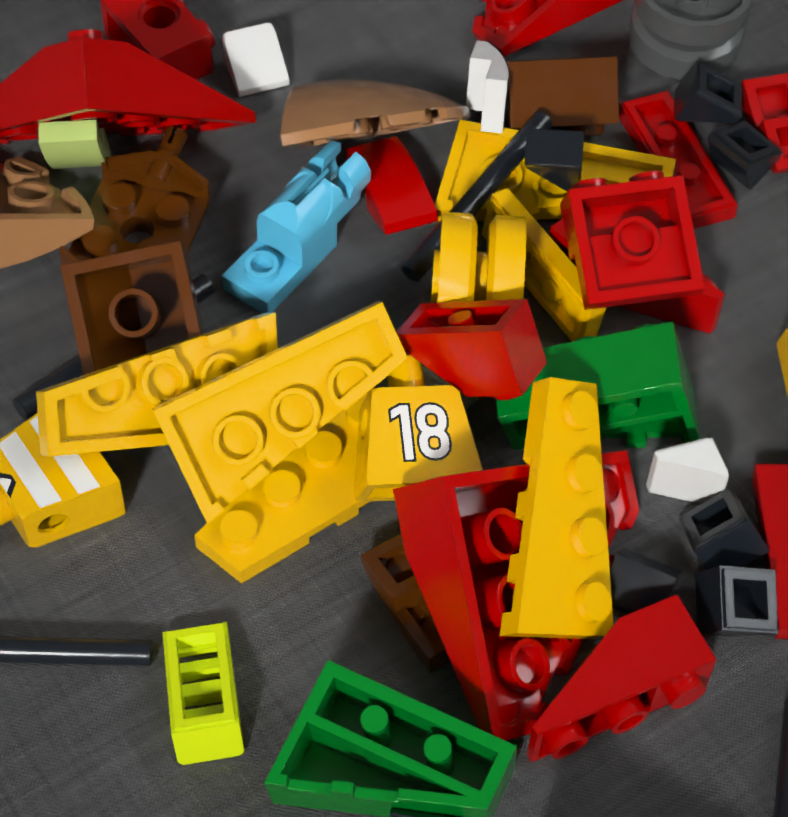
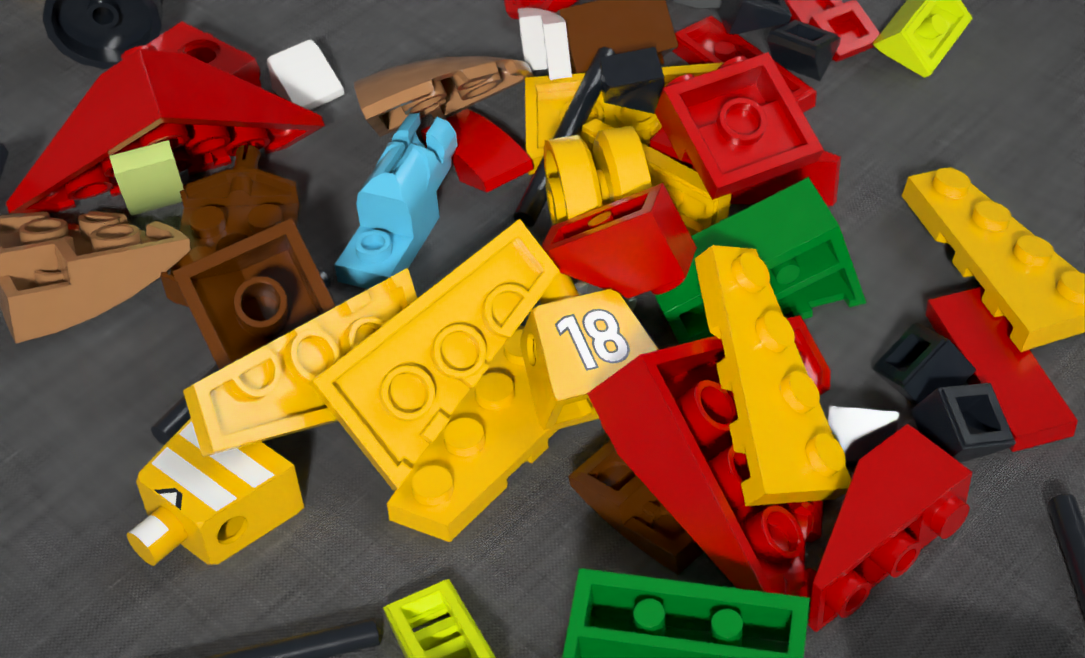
camera: 10 degrees left, 10 degrees down
(688, 471) = (868, 320): white slope -> none

